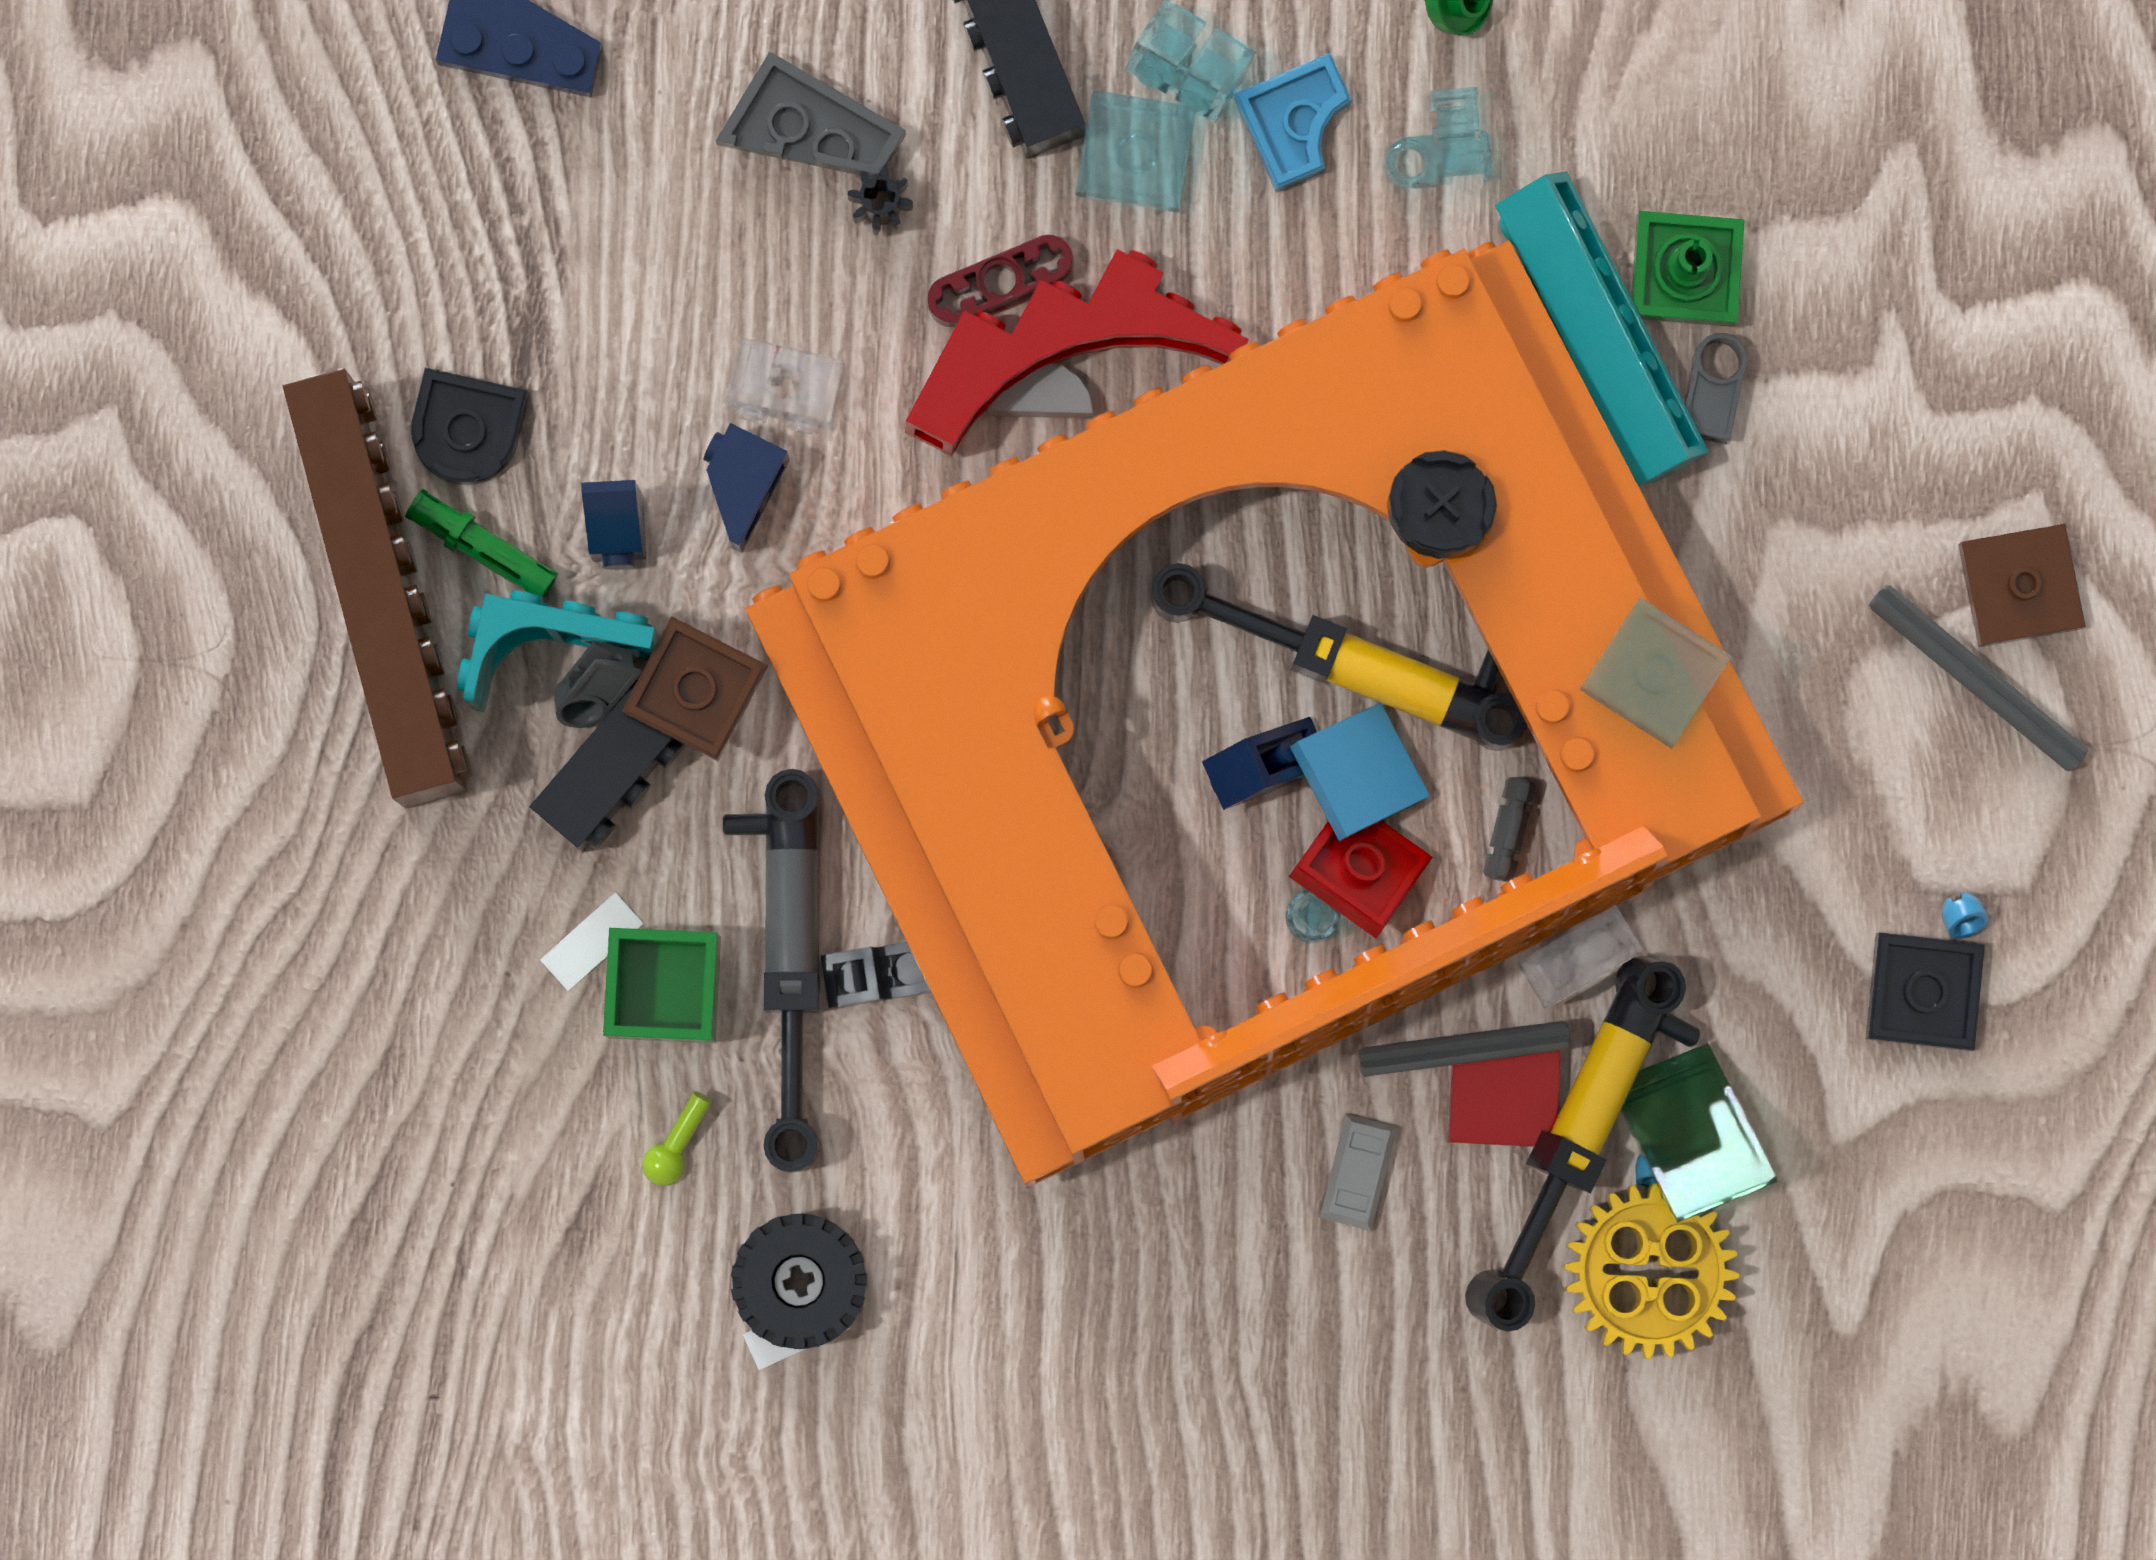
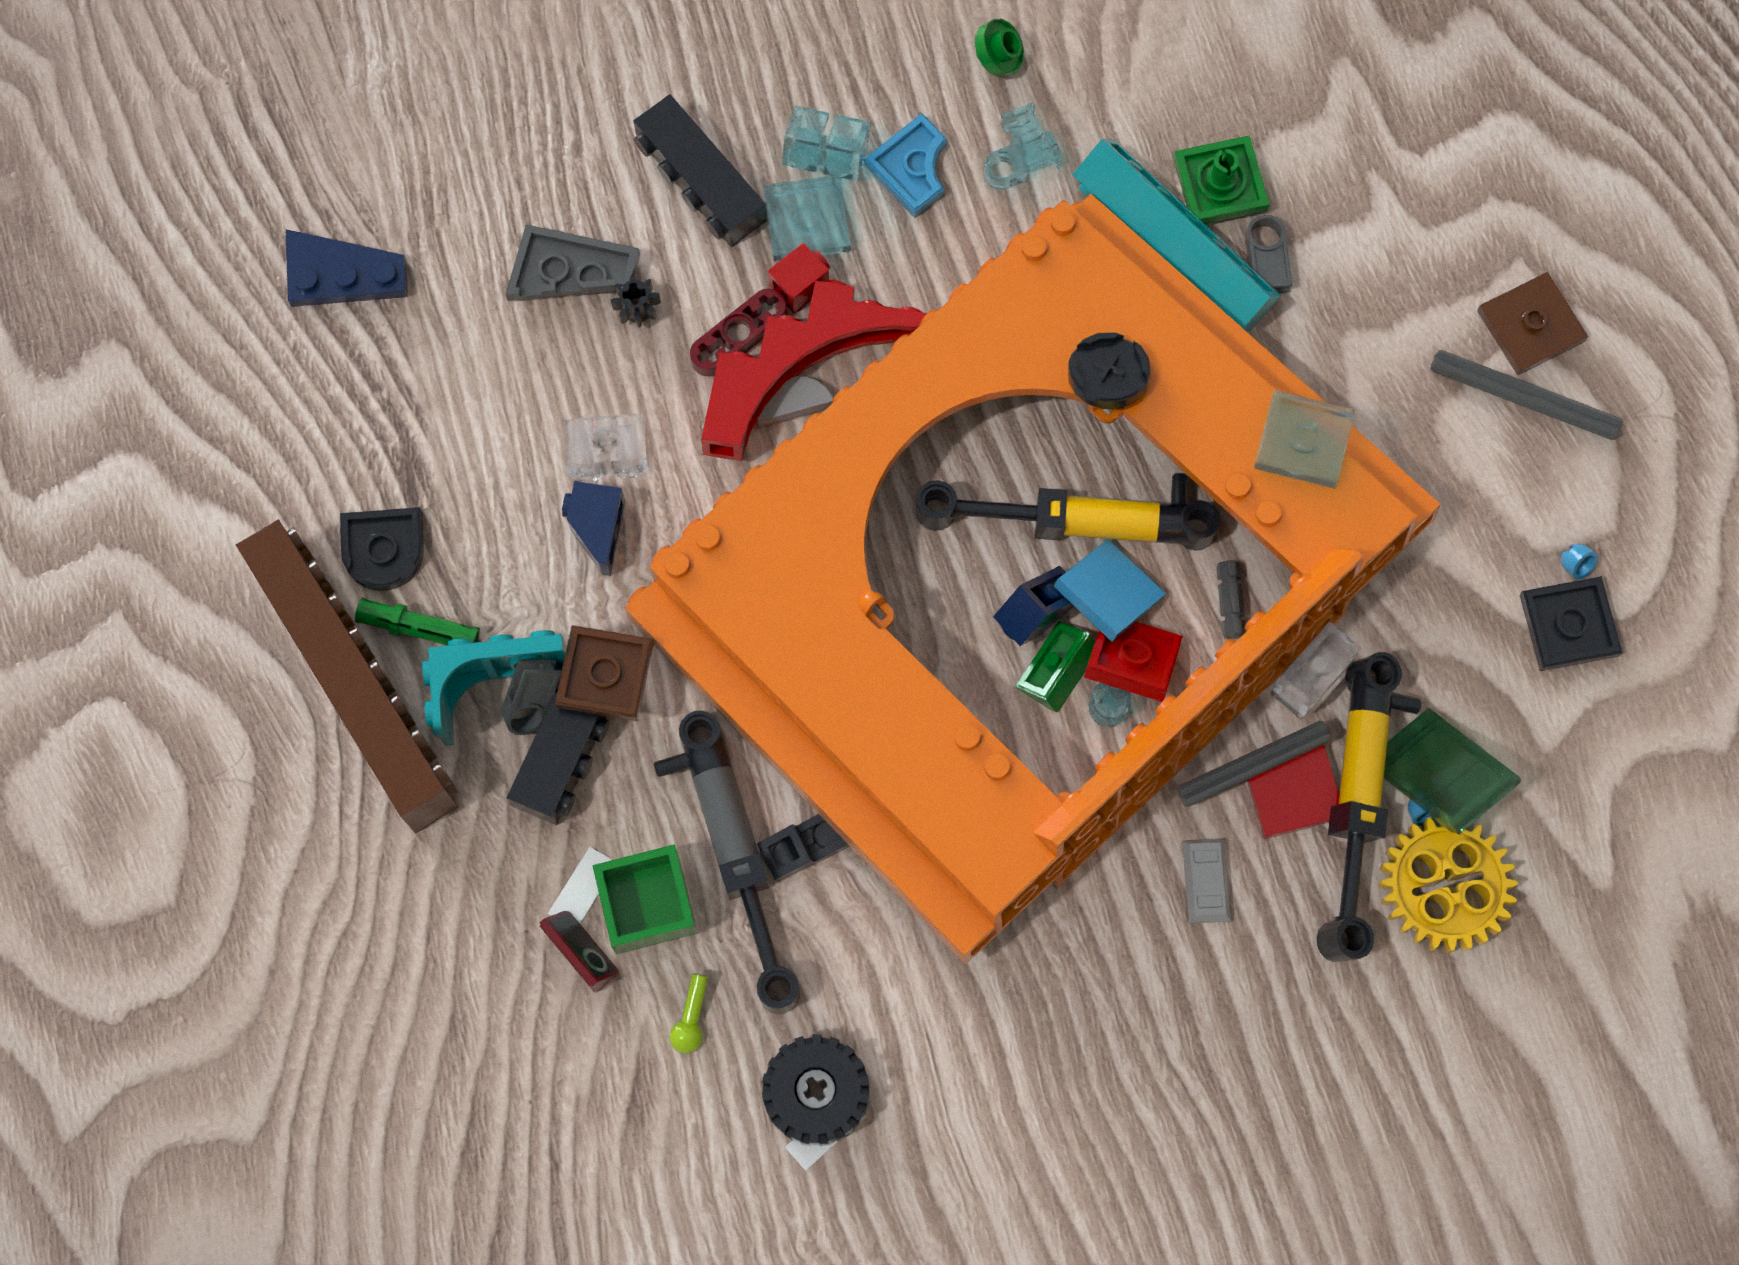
camera: 10 degrees left, 10 degrees down
(565, 1019) = (579, 949): none -> slope
(614, 523) = (509, 575): dark blue slope -> none
(1099, 230) = (796, 276): none -> red brick
(1264, 845) = (1057, 666): none -> green slope

